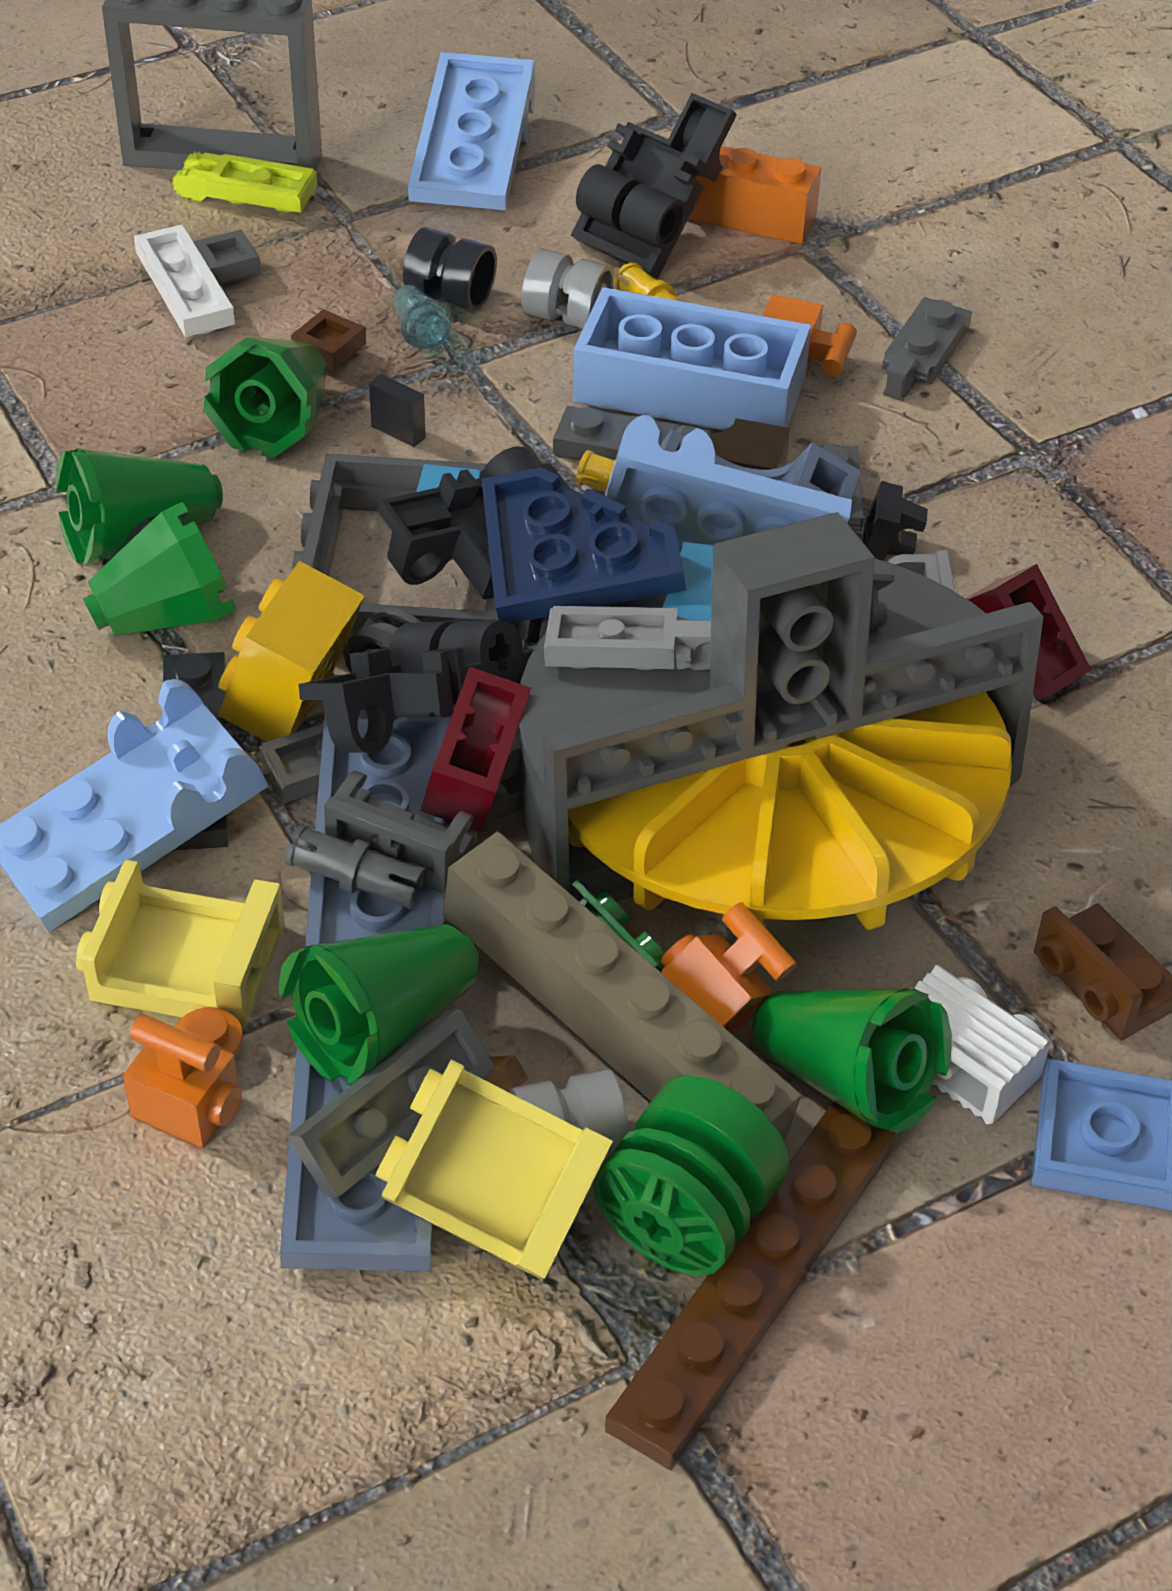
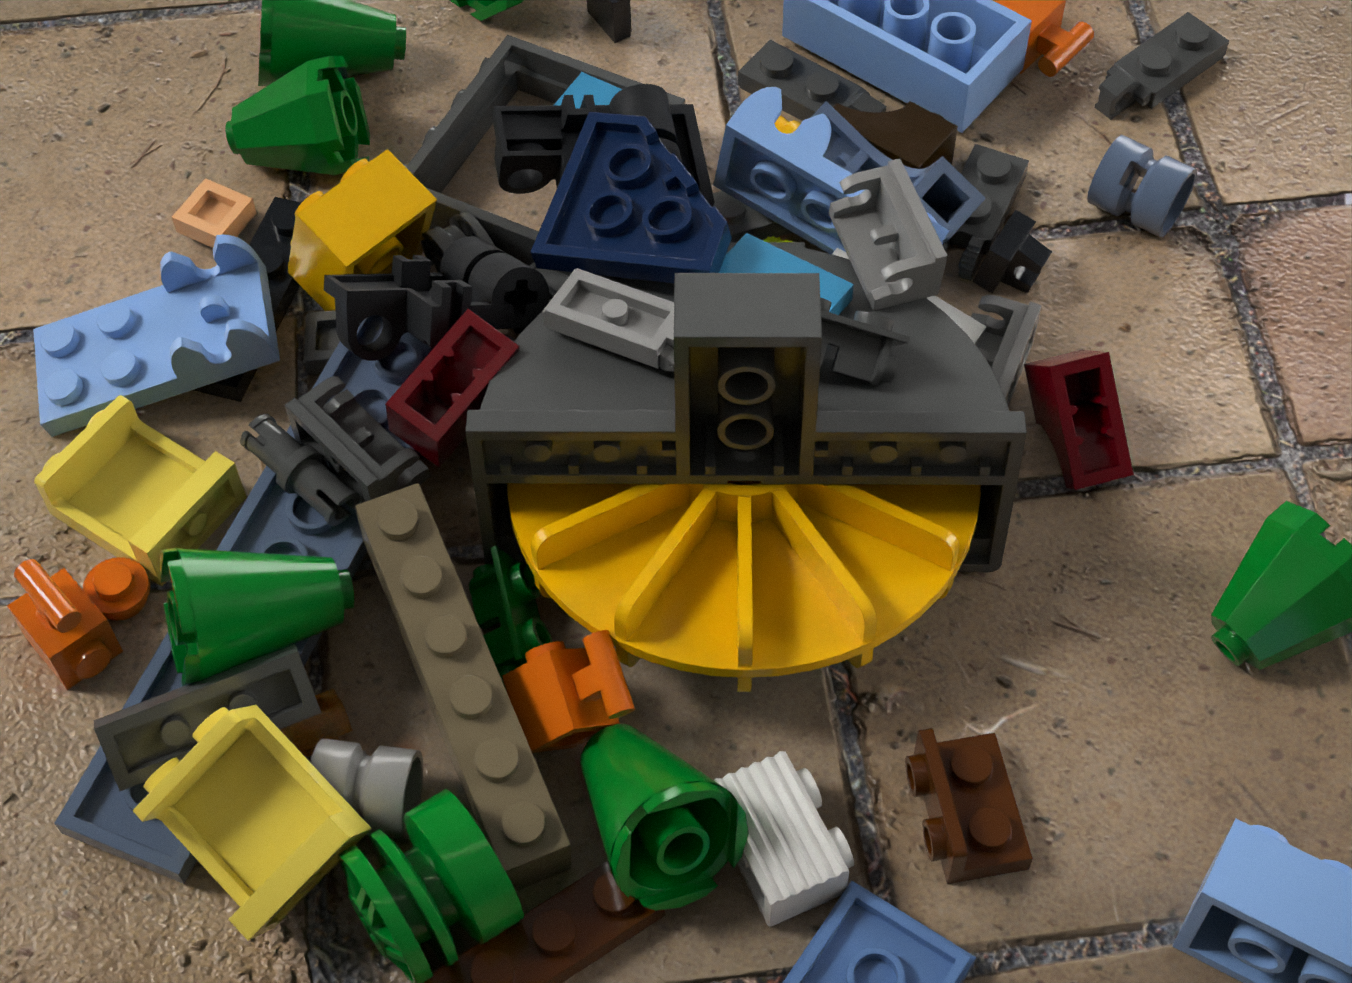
camera: 25 degrees right, 10 degrees up
(110, 686) = (213, 212): none -> light nougat plate
(812, 487) = (889, 236): none -> light grey hinge
(990, 445) = (1160, 194): none -> sand blue wheel

